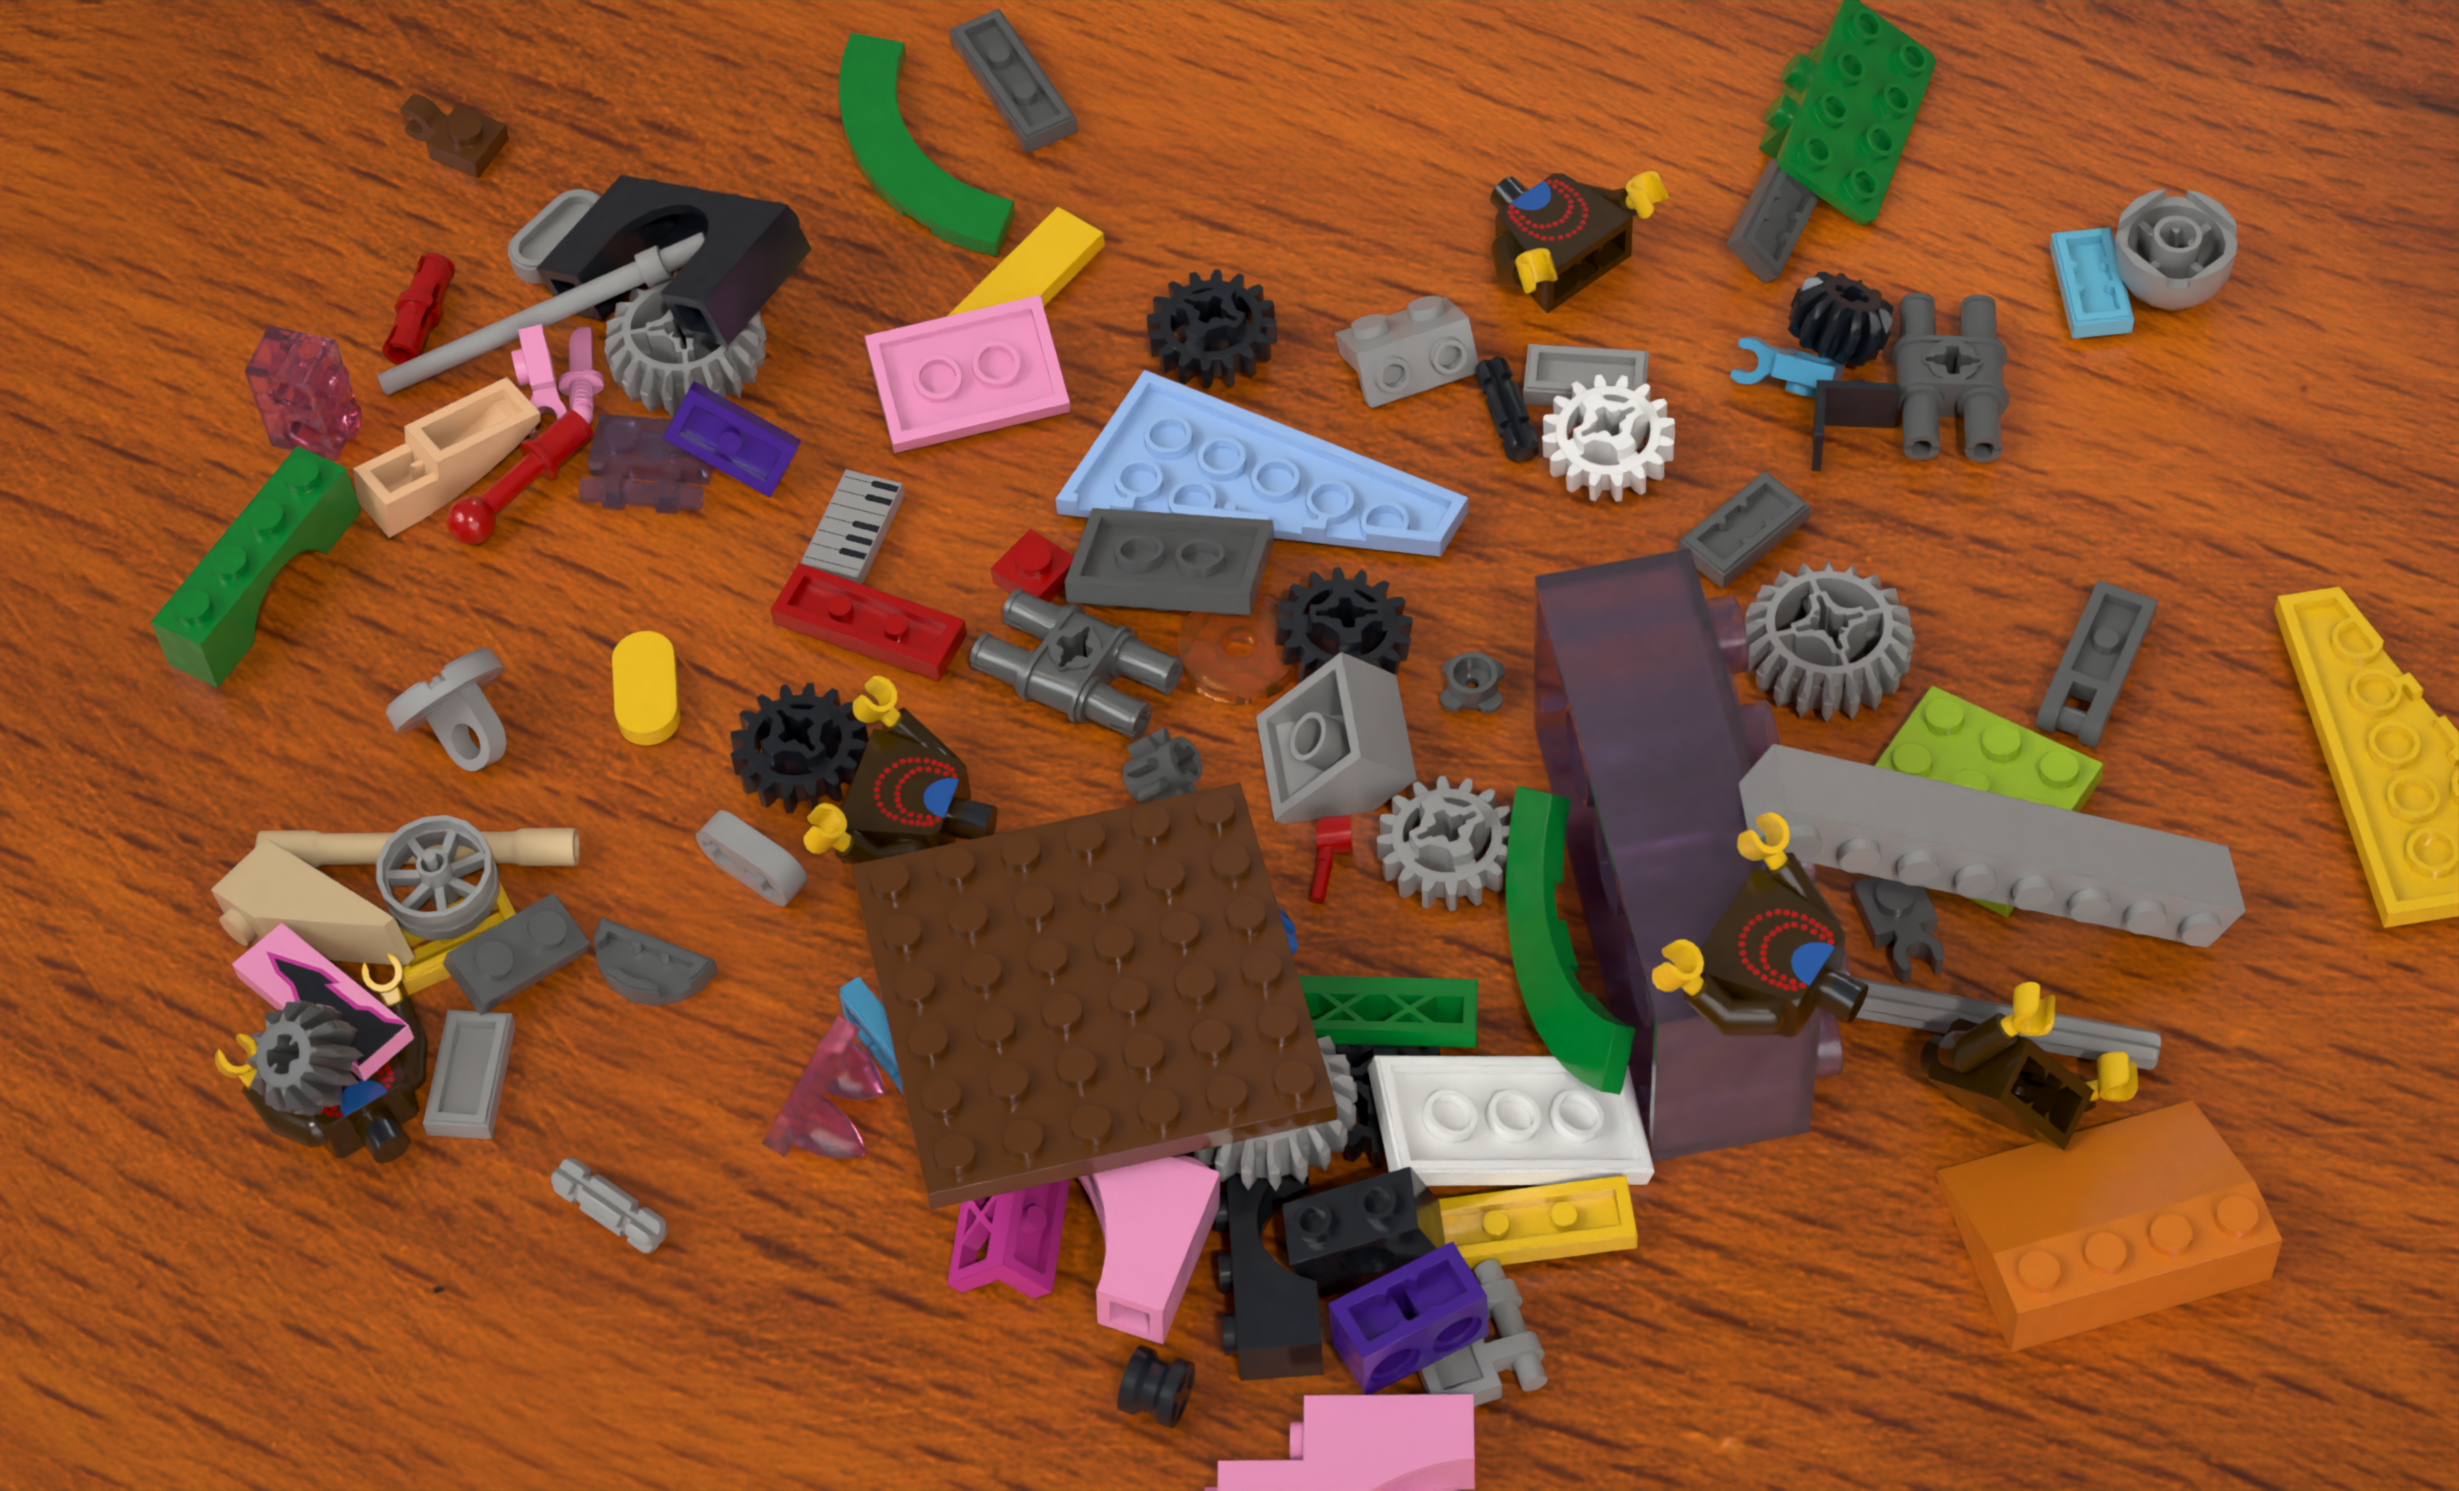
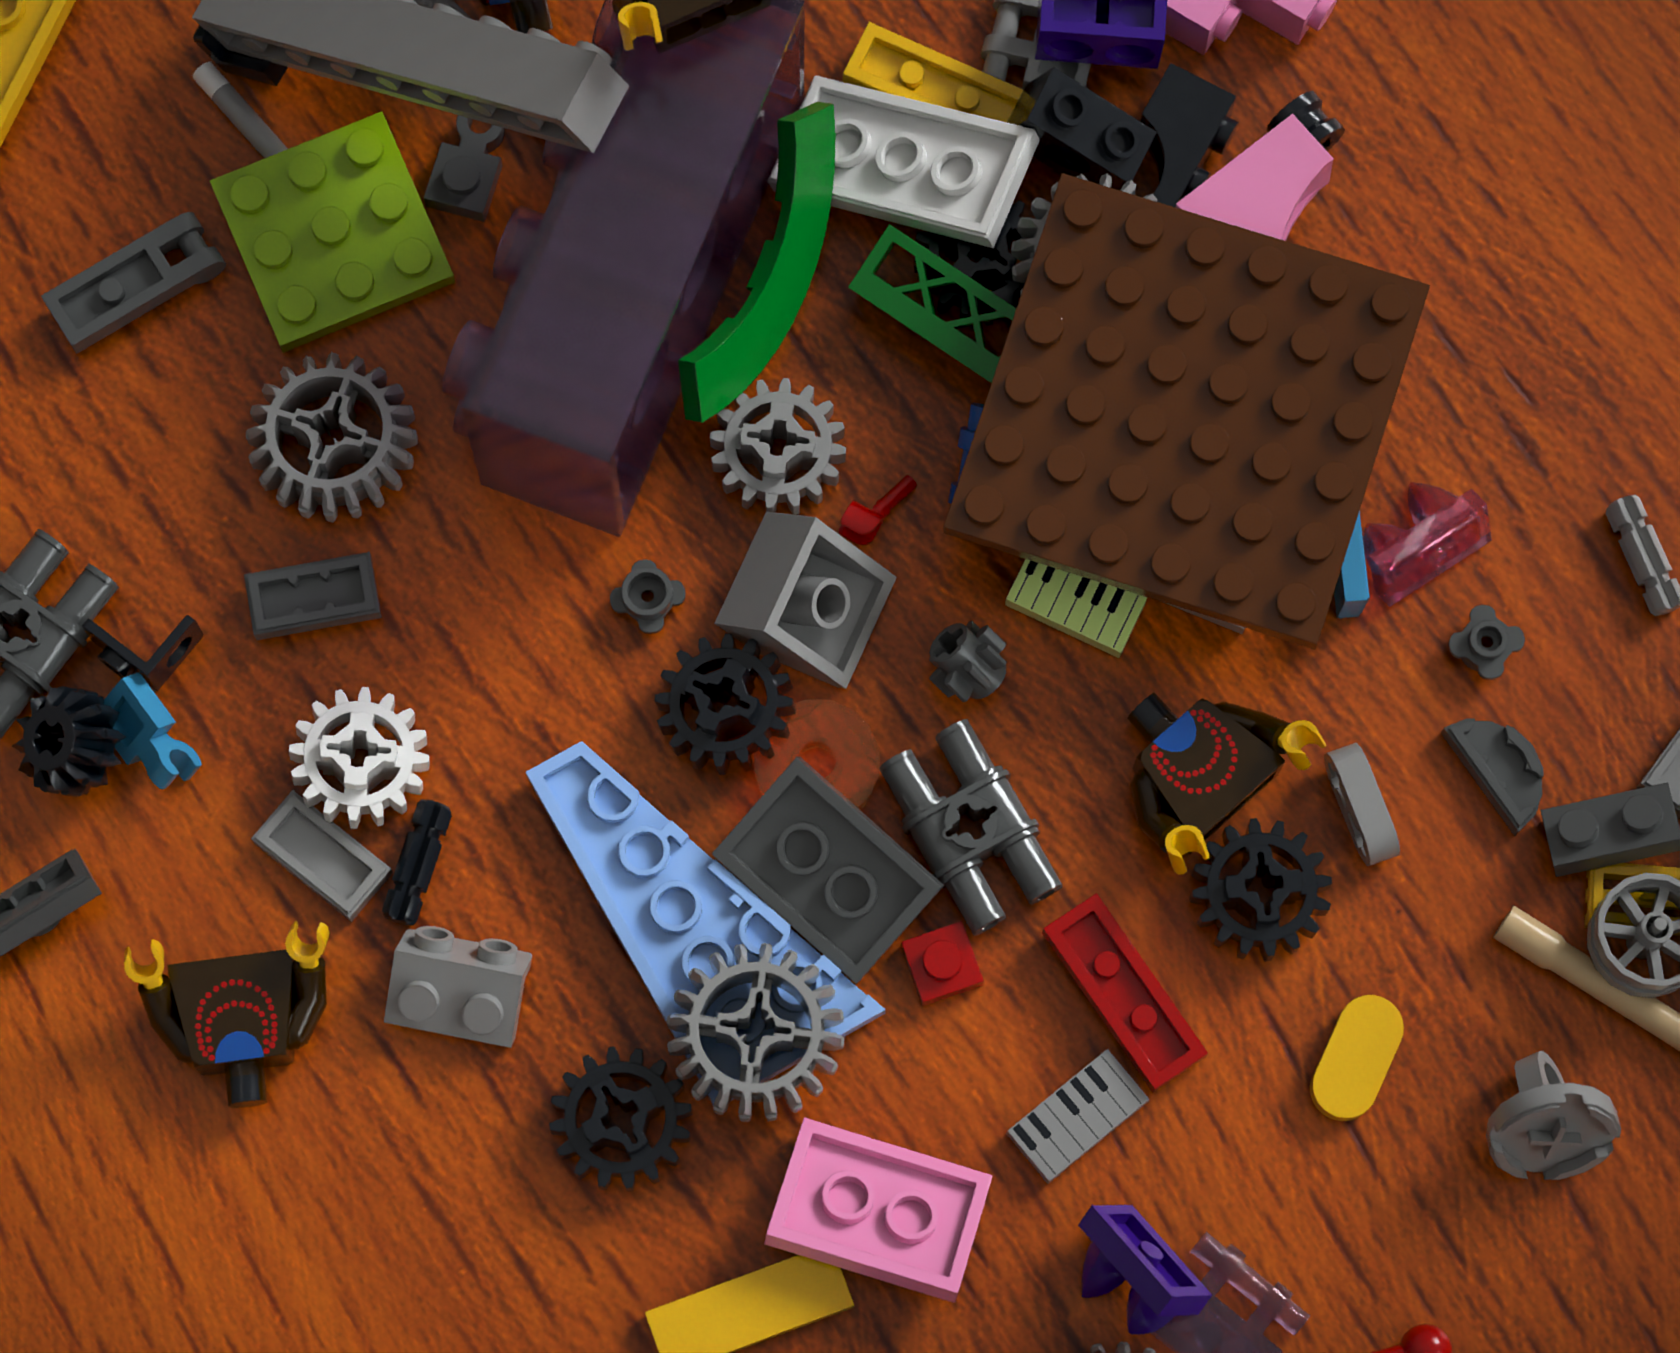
camera: 155 degrees left, 20 degrees up
(719, 1064) = (1479, 658): none -> dark grey plate
(1143, 409) = (725, 1025): none -> light grey gear

